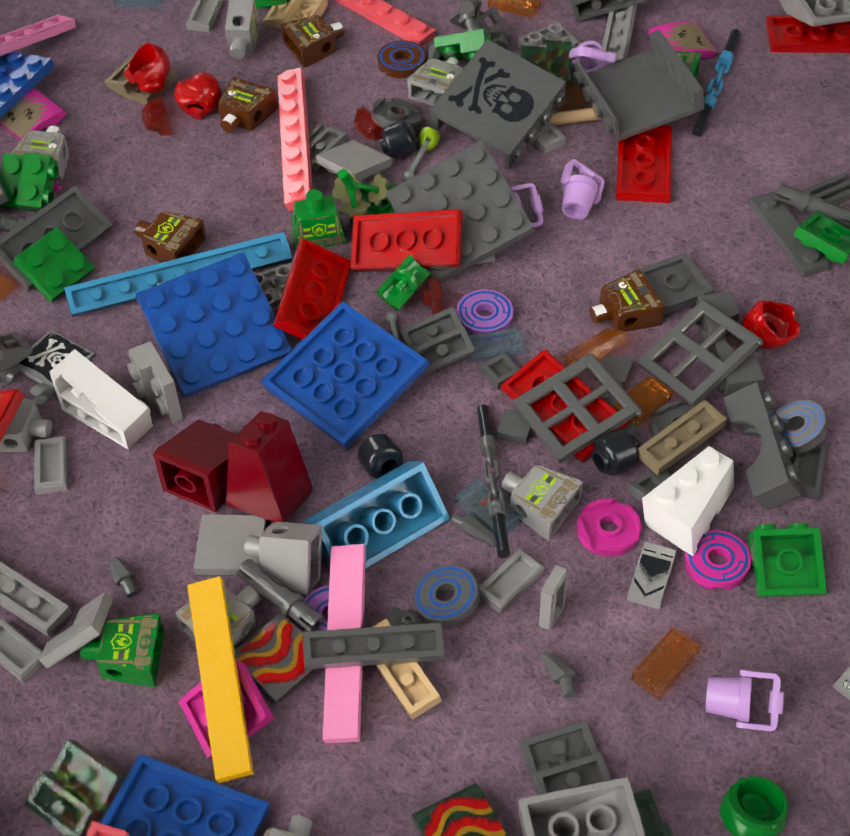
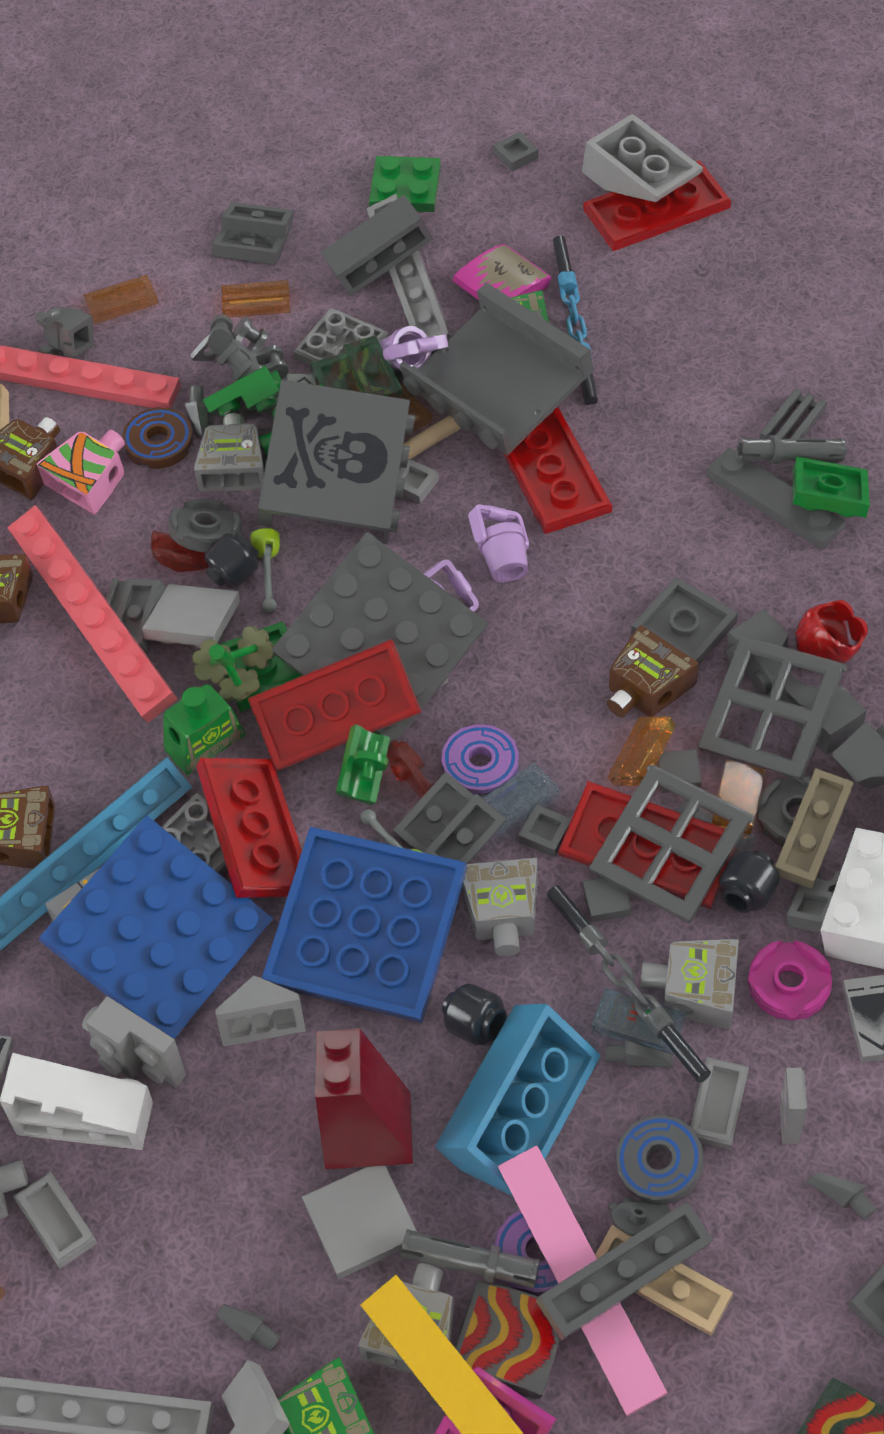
camera: 25 degrees left, 5 degrees up
(196, 464) = (263, 1126): dark red slope -> none
(244, 398) = (259, 1012): none -> light grey slope
(289, 554) = (448, 1199): light grey torso -> none
(344, 58) = (84, 469): none -> bright pink torso
(443, 398) = (502, 901): none -> light grey torso

